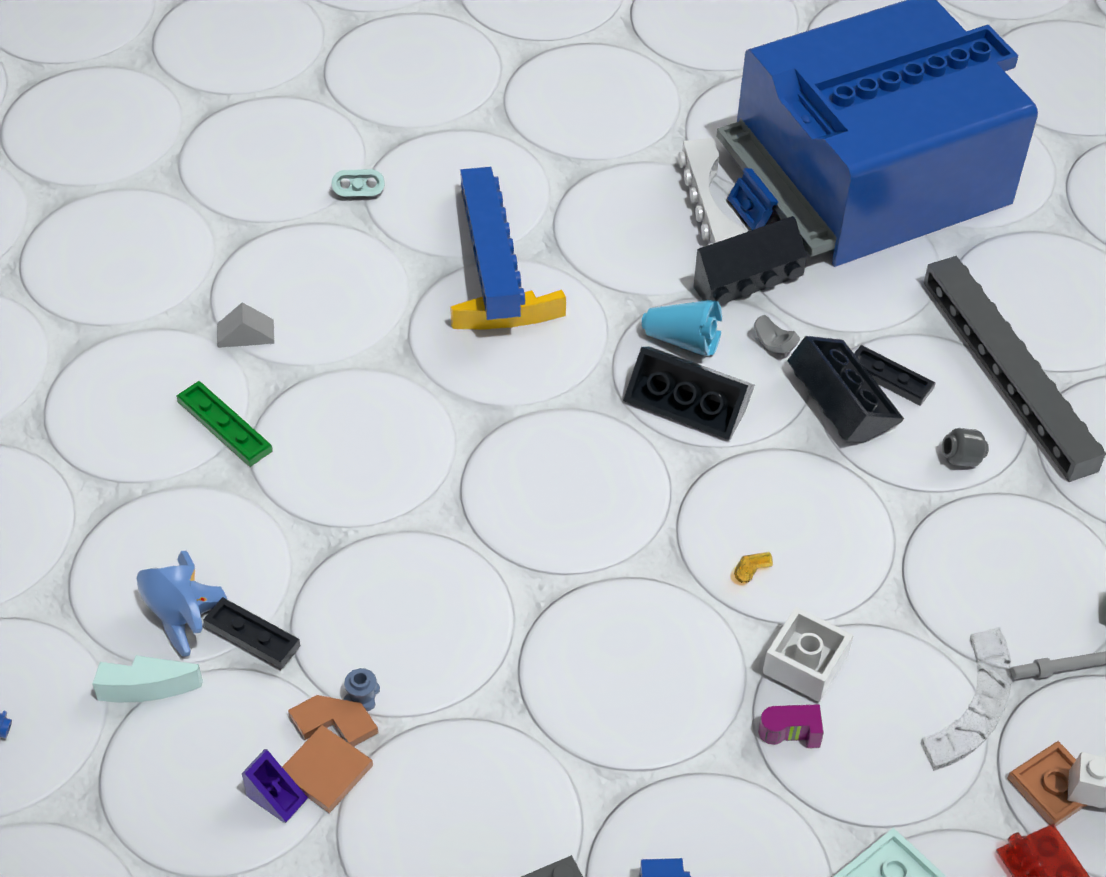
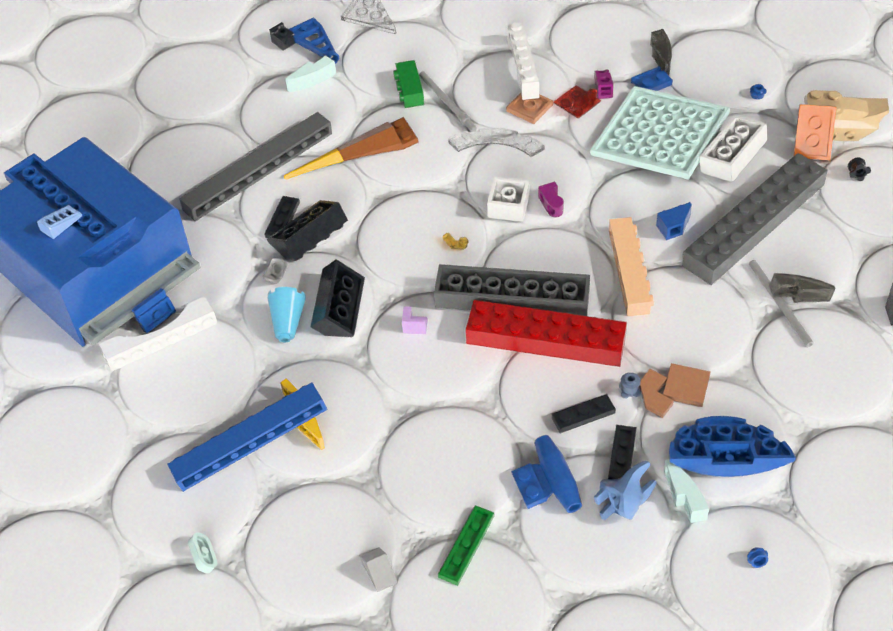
camera: 105 degrees left, 0 degrees up
(185, 762) = (728, 448): none -> blue brick
(262, 532) = (551, 476): none -> blue plate
(272, 787) = (714, 402): dark purple slope -> none
(348, 617) = (583, 413): none -> black plate
(504, 616) = (546, 333): none -> red brick
(594, 780) = (629, 266): none -> light nougat brick
(602, 597) = (550, 291): none -> dark grey brick
(611, 466) = (413, 324): none -> lavender panel
(750, 262) = (220, 296): black slope -> none
(857, 40) = (55, 224): none -> light blue slope
(965, 447) = (331, 171): dark grey head -> none
(1026, 539) = (379, 140): none -> dark orange plate

